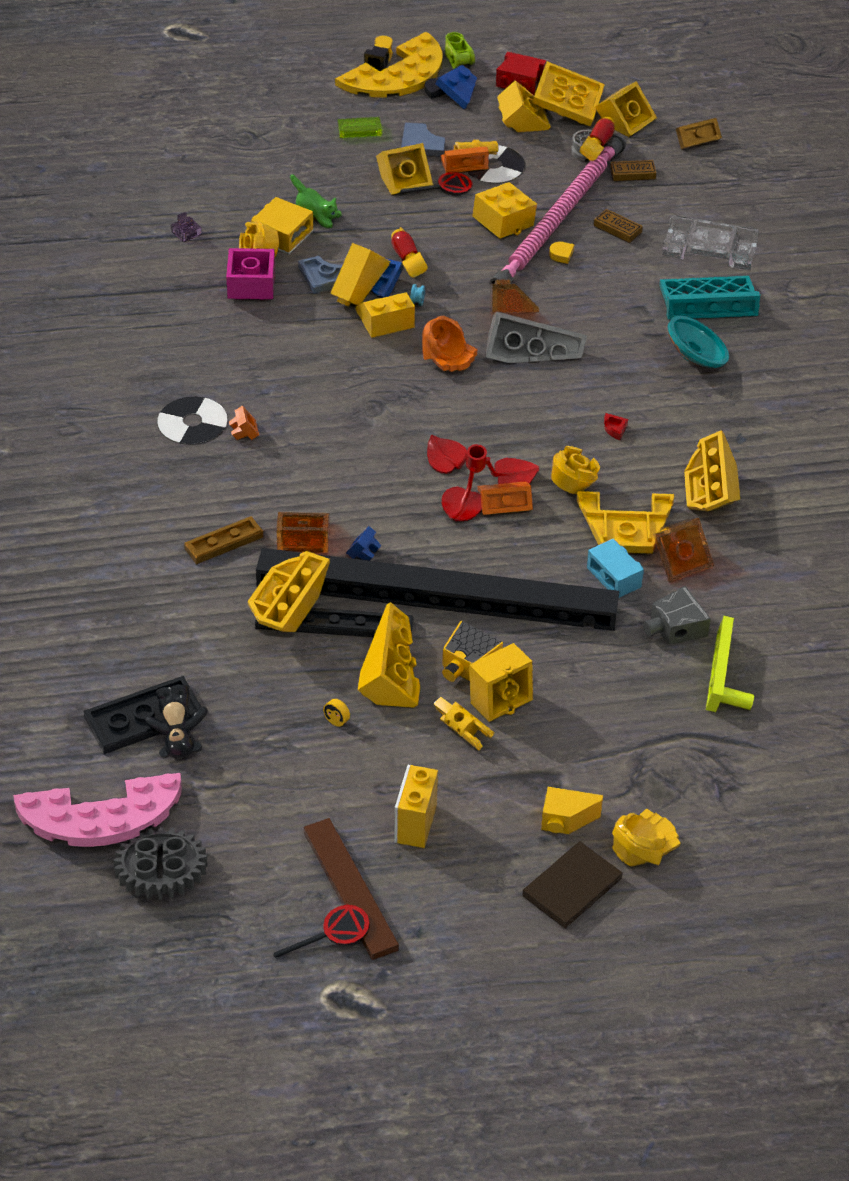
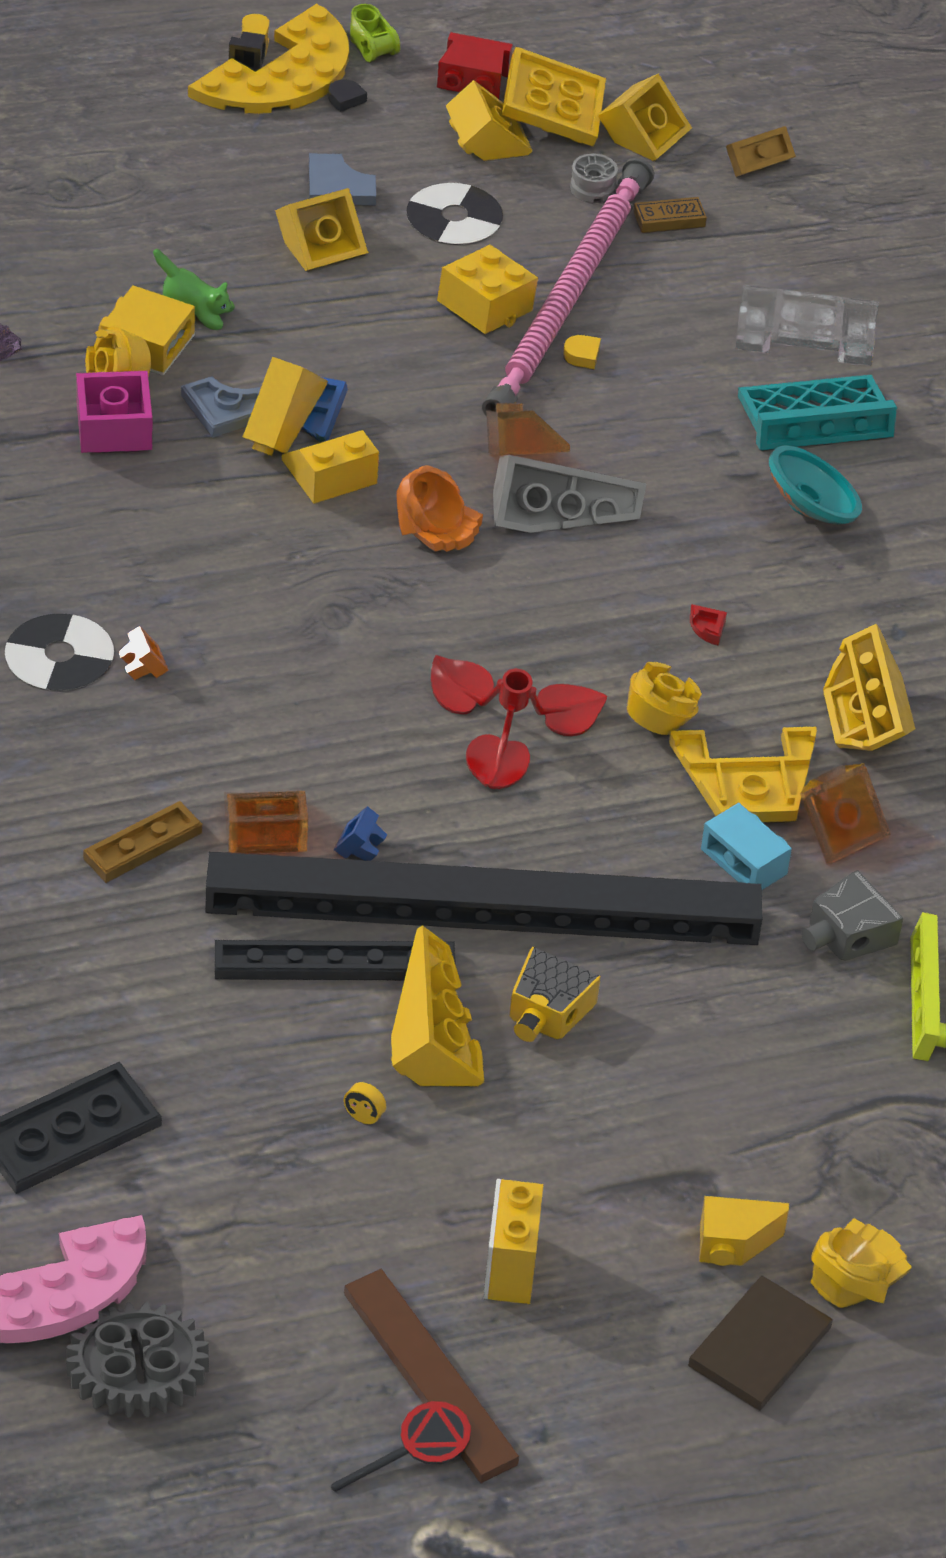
camera: 10 degrees left, 0 degrees up
(175, 707) = (120, 1111): black piece -> none
(289, 591) = (264, 918): yellow wedge -> none
(359, 127) = (238, 163): clear neon green tile -> none
(407, 251) = (350, 362): piece -> none
(417, 294) = (376, 430): medium azure bush -> none
(450, 182) = (393, 246): piece -> none
(458, 85) = (382, 89): blue wing -> none
(462, 722) = (556, 1104): yellow hinge -> none
(465, 159) = (412, 210): orange panel -> none
(491, 145) = (426, 190): yellow pin -> none
(501, 682) = (608, 1039): yellow brick -> none
(505, 497) = (564, 747): orange panel -> none
(598, 138) = (616, 163): piece -> none
(618, 225) = (661, 304): pearl gold tile -> none

